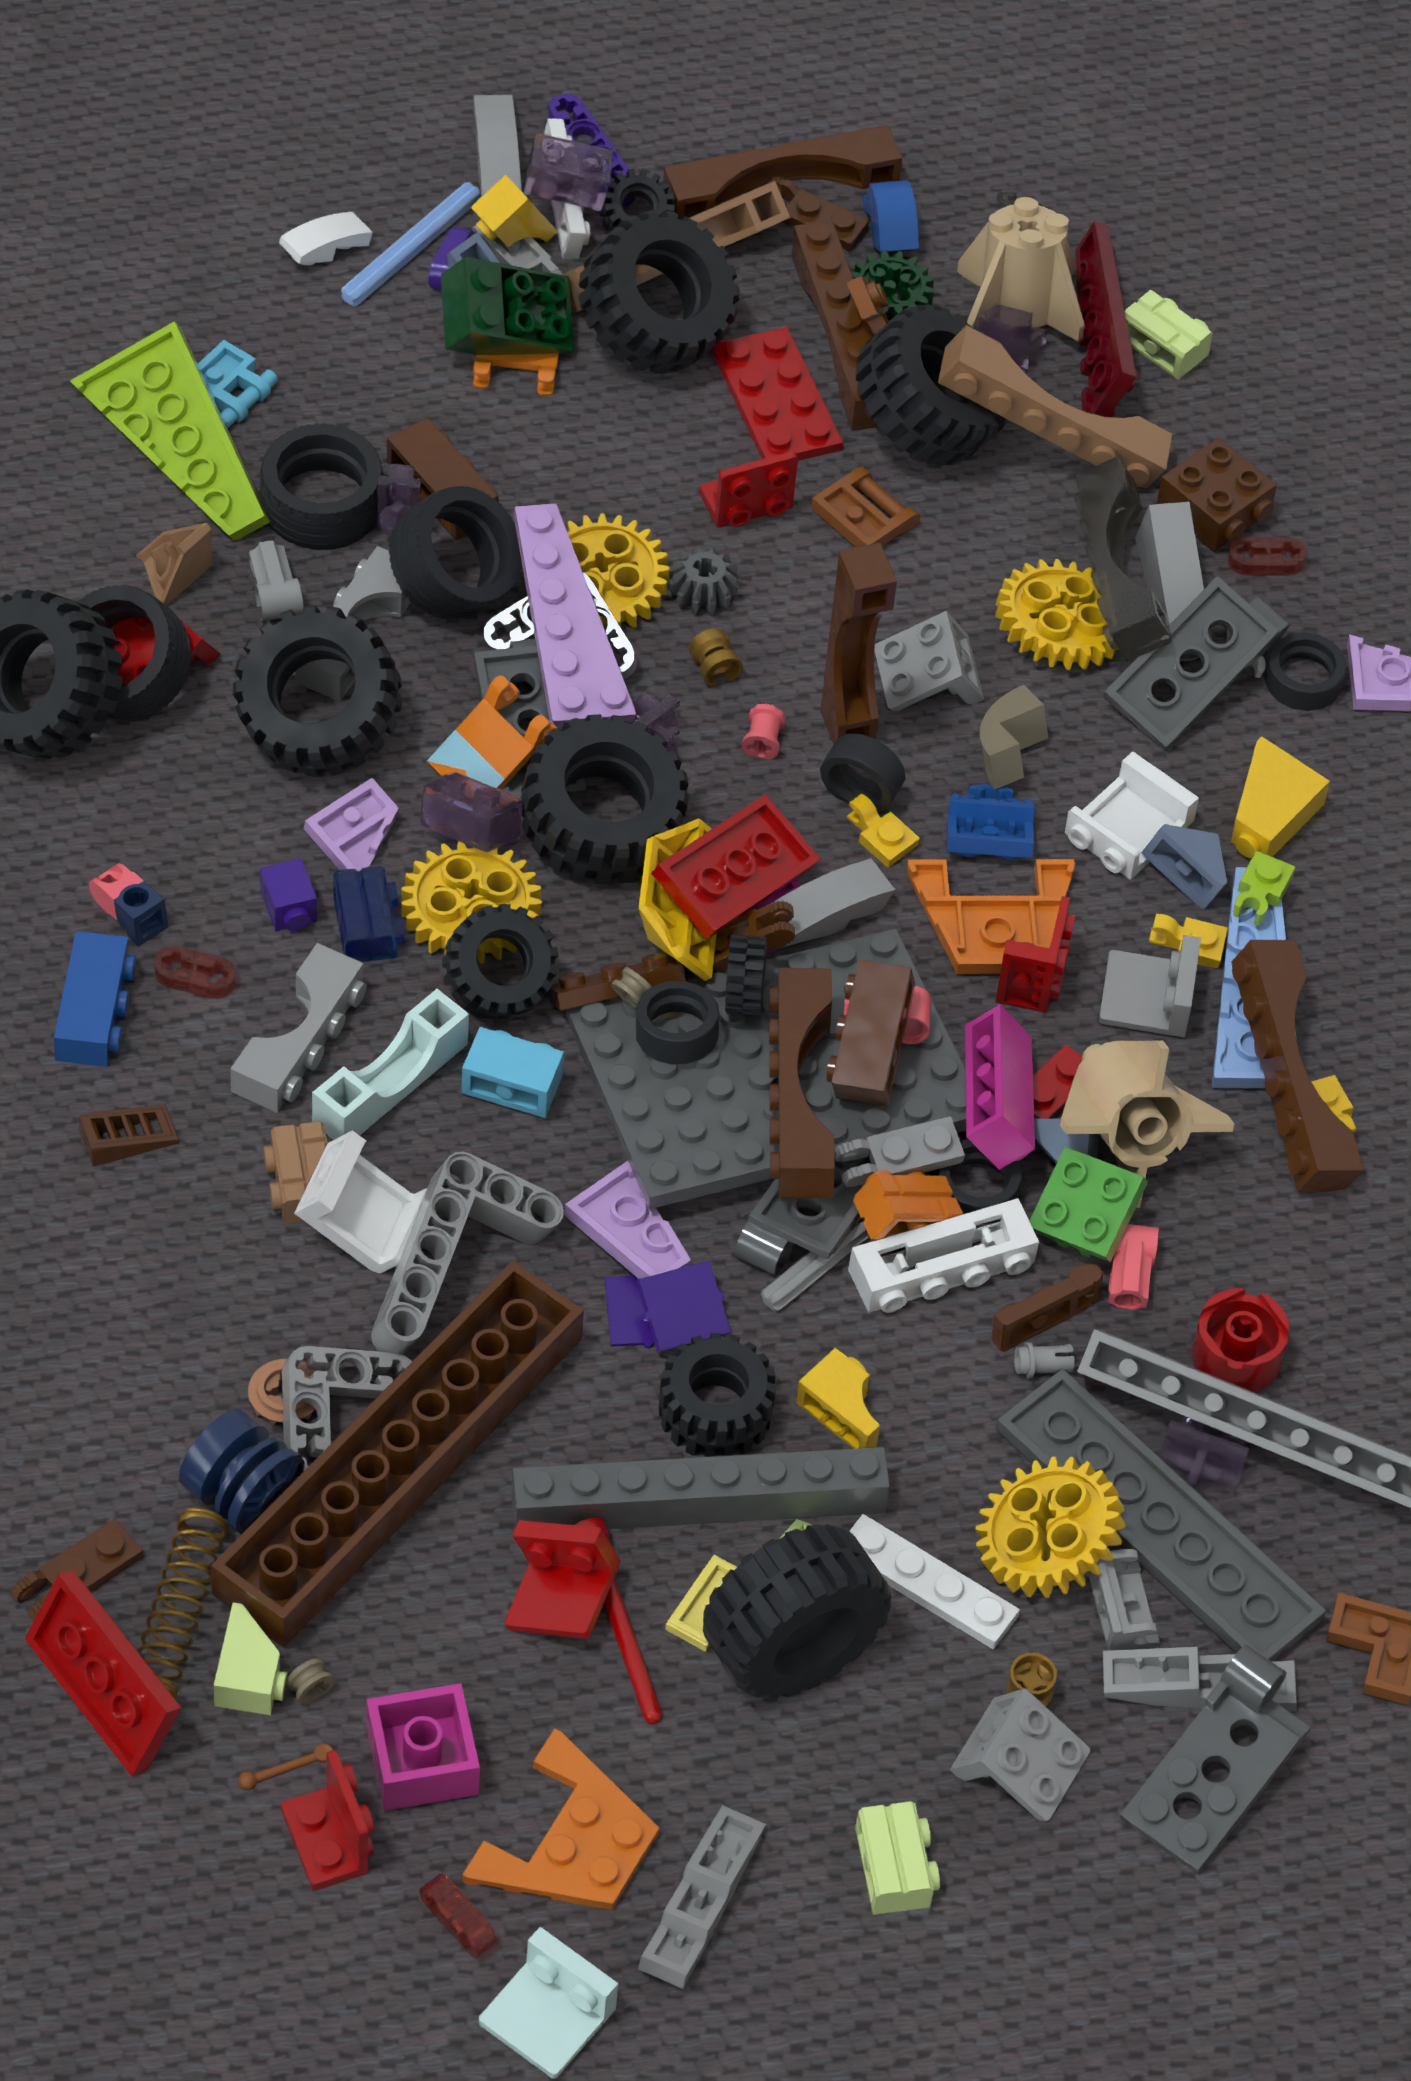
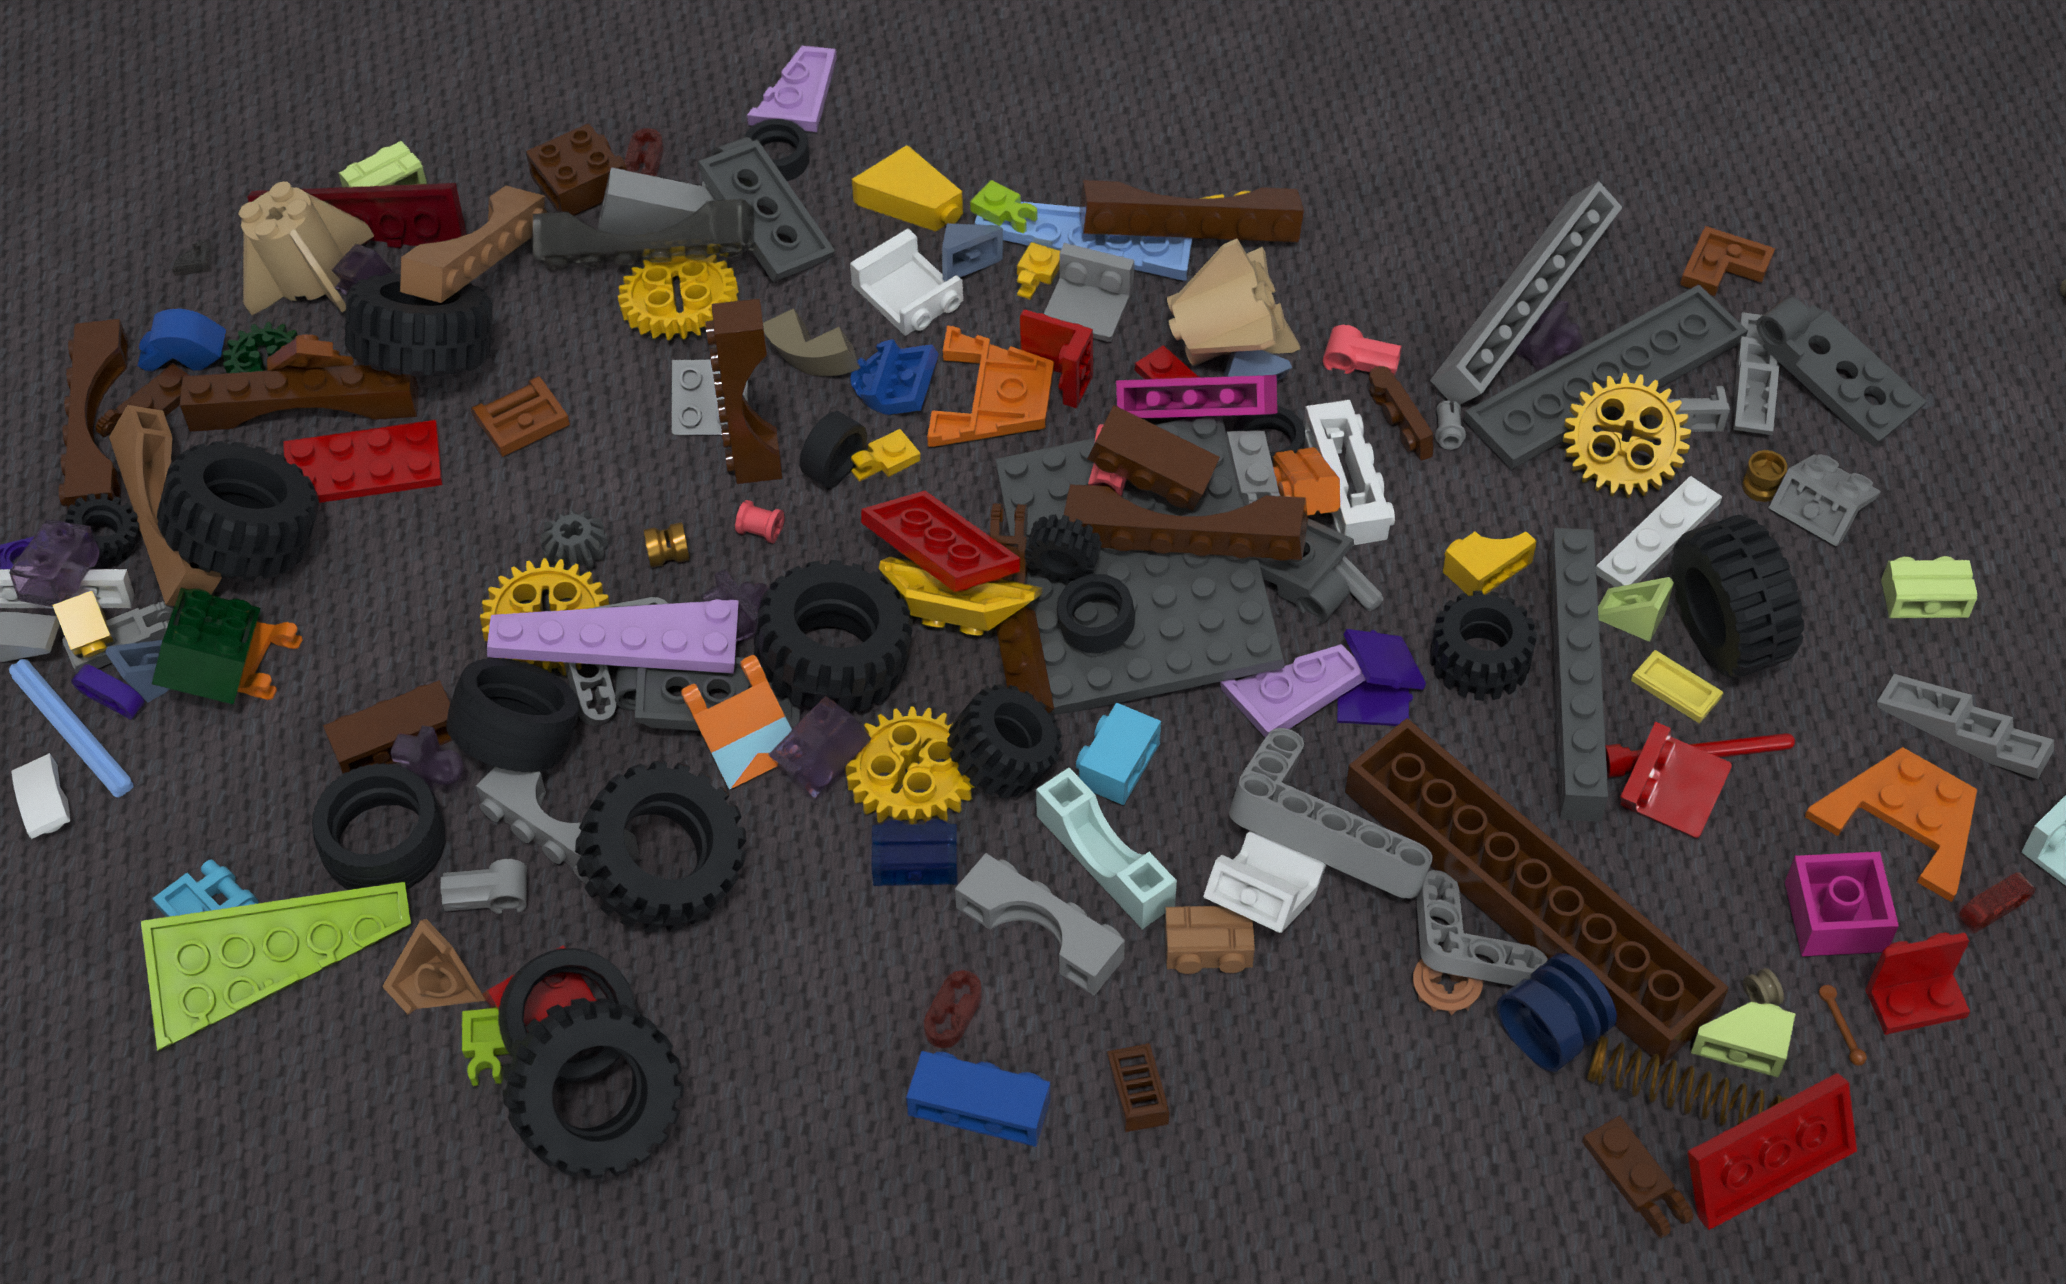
camera: 75 degrees left, 0 degrees up
(130, 903) = (861, 1055): dark blue leg -> none
(288, 895) = (882, 914): dark purple brick -> none
(353, 826) = (806, 855): lavender wing -> none
(630, 987) = (1051, 642): dark tan bush -> none
(751, 490) = (475, 494): red bracket -> none
(836, 898) = (963, 488): light grey slope -> none
(1087, 1204) = (1316, 360): bright green plate -> none
(1241, 1339) = (1450, 292): red brick -> none

